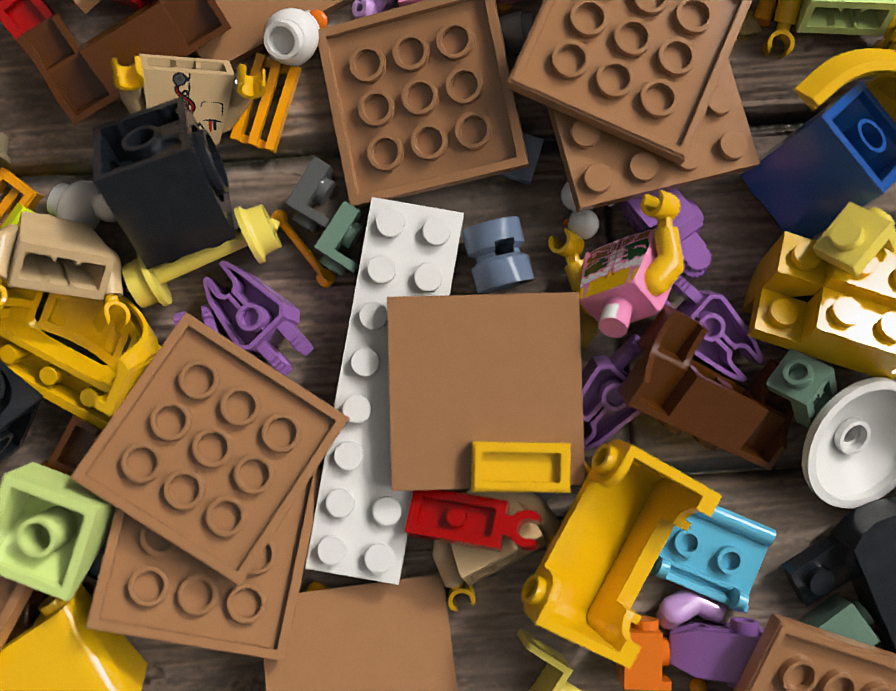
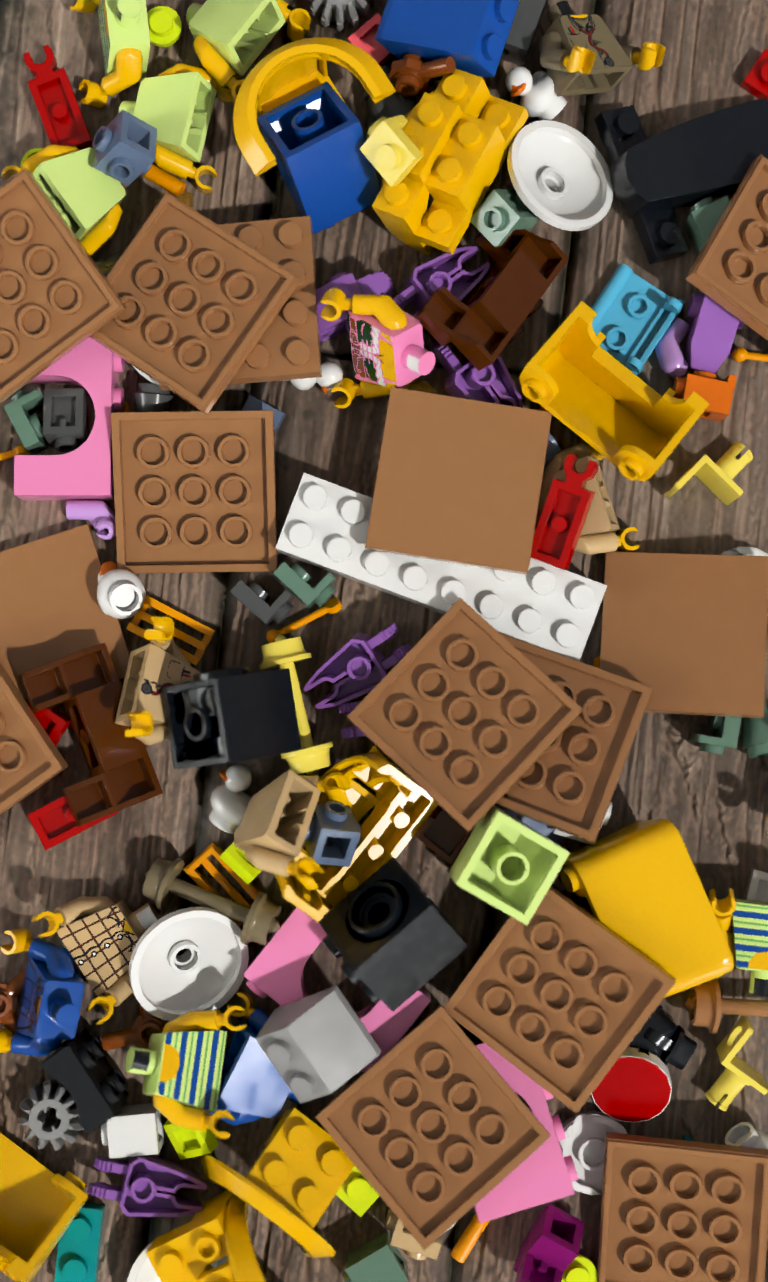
camera: 80 degrees left, 0 degrees up
(64, 324) = (332, 834): none -> sand blue brick
(501, 271) = (329, 457): sand blue wheel -> none
(520, 466) = (527, 462): yellow tile -> none

